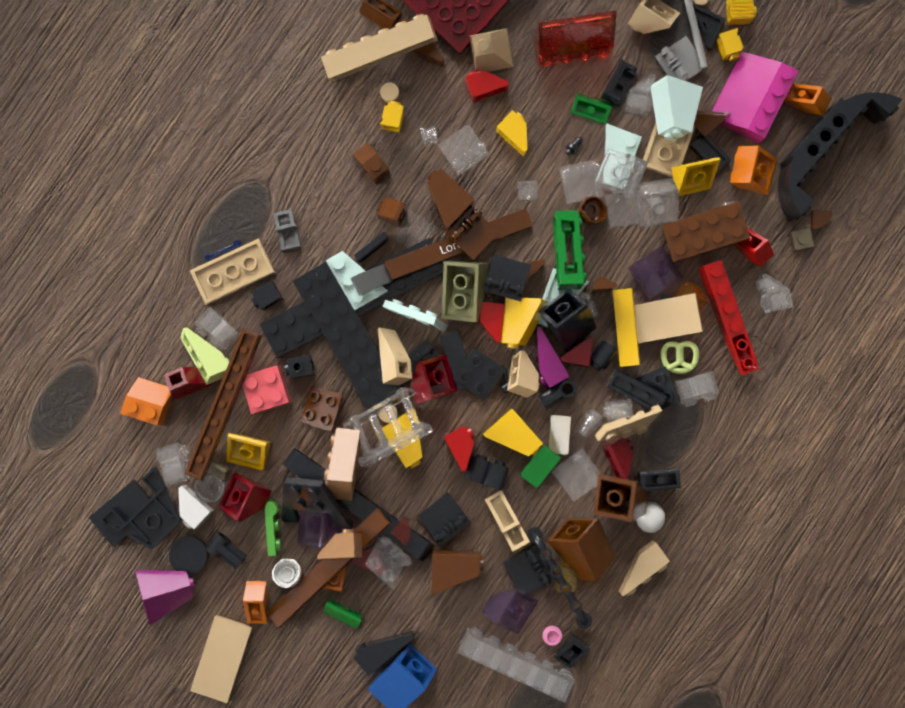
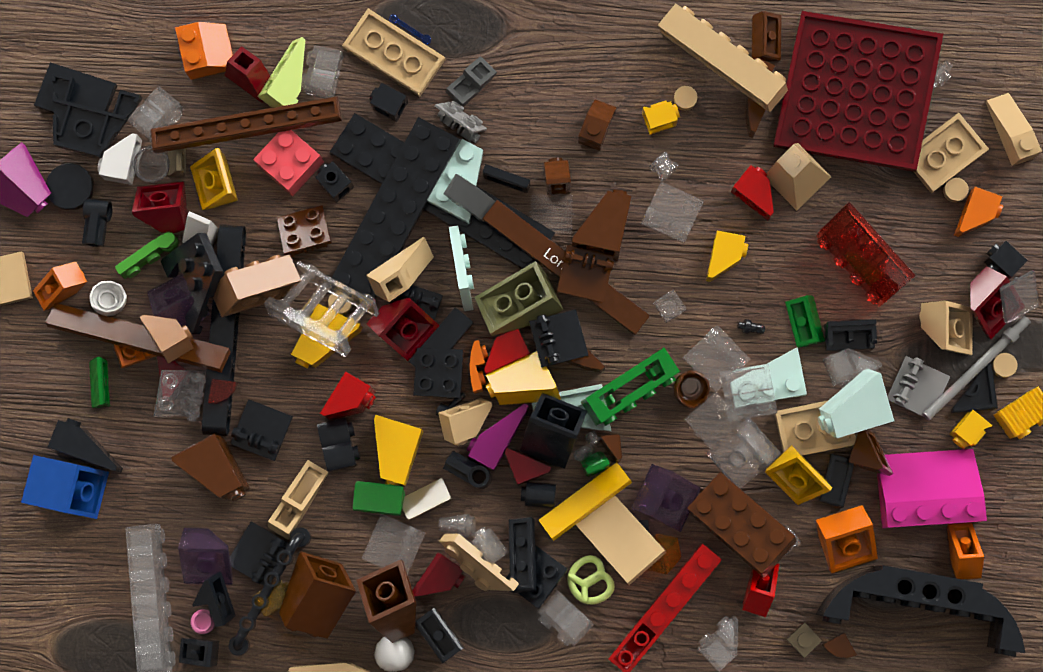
camera: 65 degrees right, 5 degrees down
(276, 481) = (198, 224): none -> white slope
(301, 255) = (453, 112): none -> light grey hinge
(485, 342) = (477, 360): none -> orange slope
(543, 617) = (217, 597): none -> black slope
(606, 305) = (595, 464): none -> green slope

